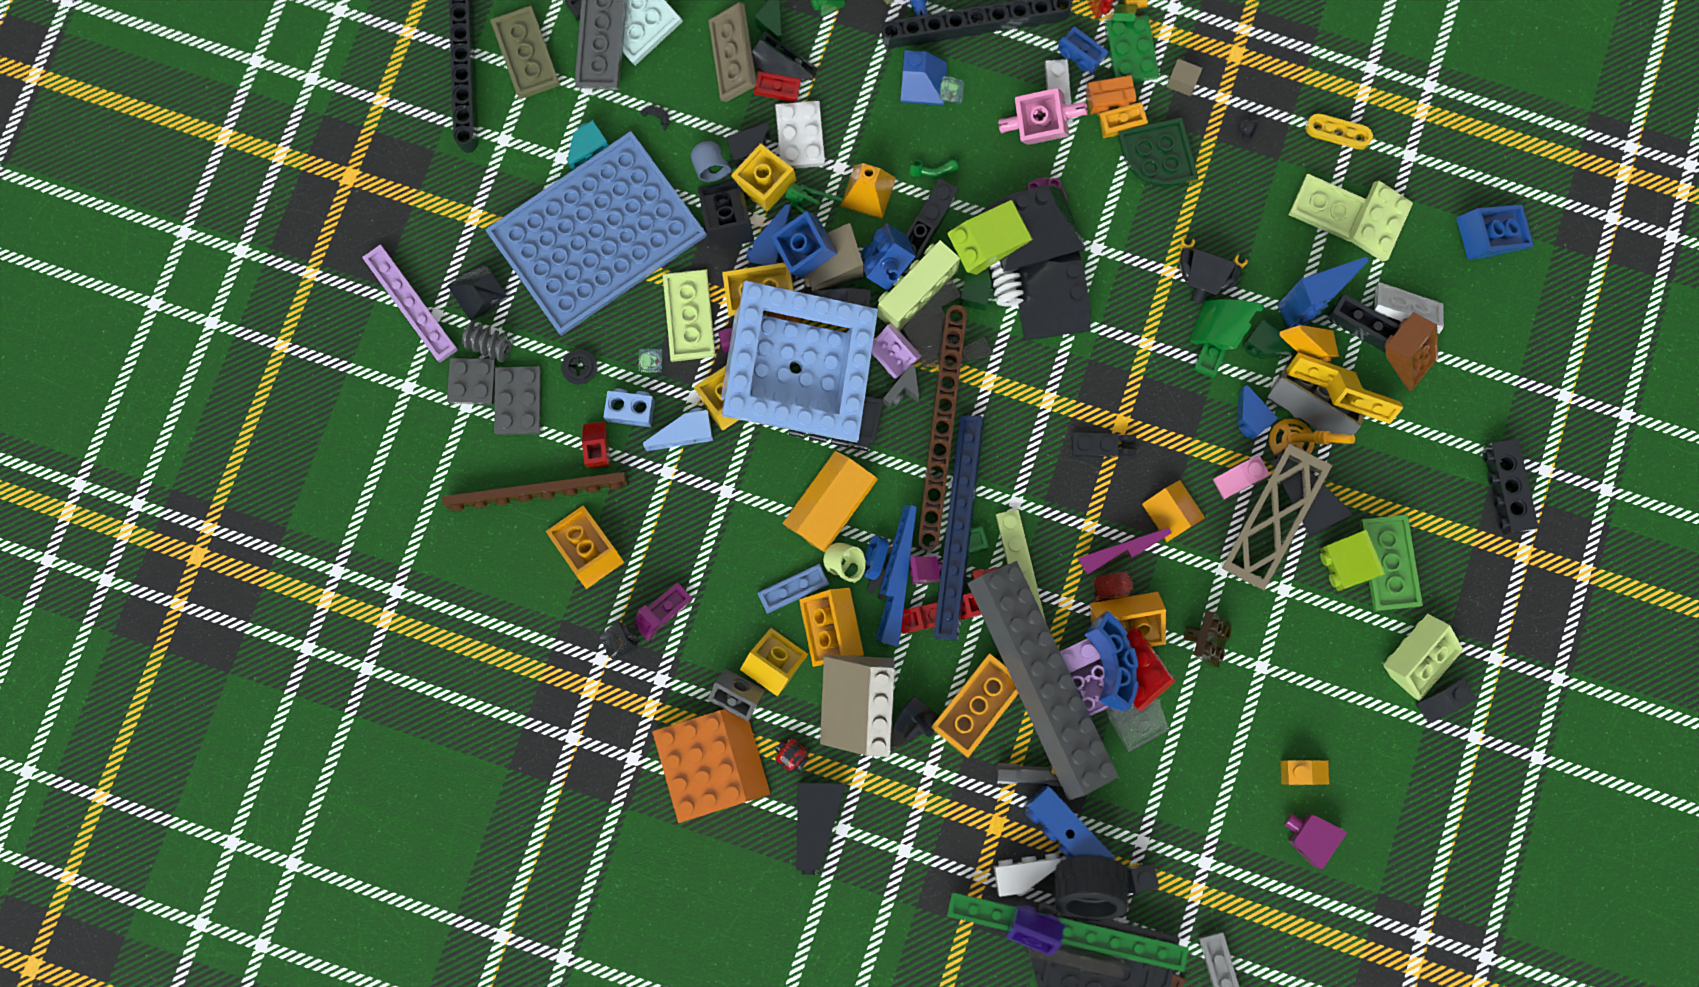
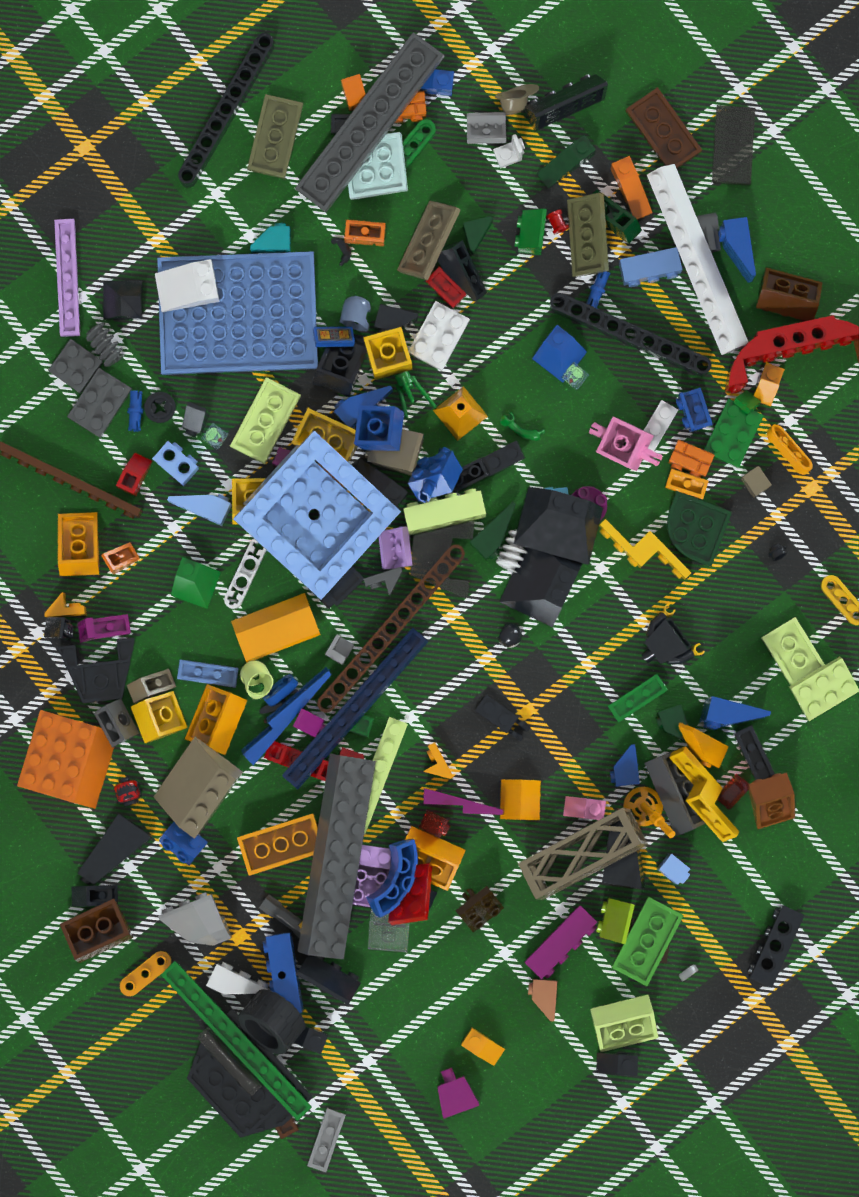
camera: 35 degrees right, 5 degrees up
(531, 235) = (187, 286): none -> white slope
(557, 385) = (135, 411): none -> blue pin
(605, 619) = (59, 608): none -> light orange slope
(620, 354) = (195, 419): none -> slope
(634, 533) = (120, 558): none -> orange slope
(668, 83) = (365, 232): none -> orange brick
(693, 663) = (99, 680): none -> black wing
(702, 194) = (333, 336): none -> tile
(723, 509) = (195, 583): none -> green slope
(746, 636) = (151, 685): none -> dark tan slope
(763, 469) = (243, 572): none -> white beam
(827, 881) = (93, 895): none -> black slope
(853, 915) = (96, 931): none -> reddish brown slope
(879, 770) = (182, 844): none -> blue bracket
(905, 482) = (339, 649): none -> light grey panel
(912, 722) = (227, 825): black shield -> none
(929, 937) = (152, 967): none -> light orange plate
(947, 837) = (197, 921): none -> light grey brick
(989, 237) = (517, 512): lime slope -> none
(1035, 930) = (213, 1023): dark purple slope -> none
(1057, 362) = (510, 635): none -> black piece
(1079, 528) = (441, 768): none -> light orange slope
(1115, 805) = (329, 978): none -> black slope
(1126, 203) = (644, 550): none -> yellow bracket
(1193, 30) = (789, 449): none -> light orange plate
(1224, 322) = (649, 687): green slope -> none
(1309, 620) = (560, 942): none -> magenta brick
(1331, 682) = (544, 996): none -> nougat slope
(1367, 366) = (733, 791): none -> clear red slope
(1367, 477) = (674, 869): none -> light blue brick
(1401, 304) = (792, 759): white plate -> none
(1448, 567) = (688, 972): none -> light grey tile

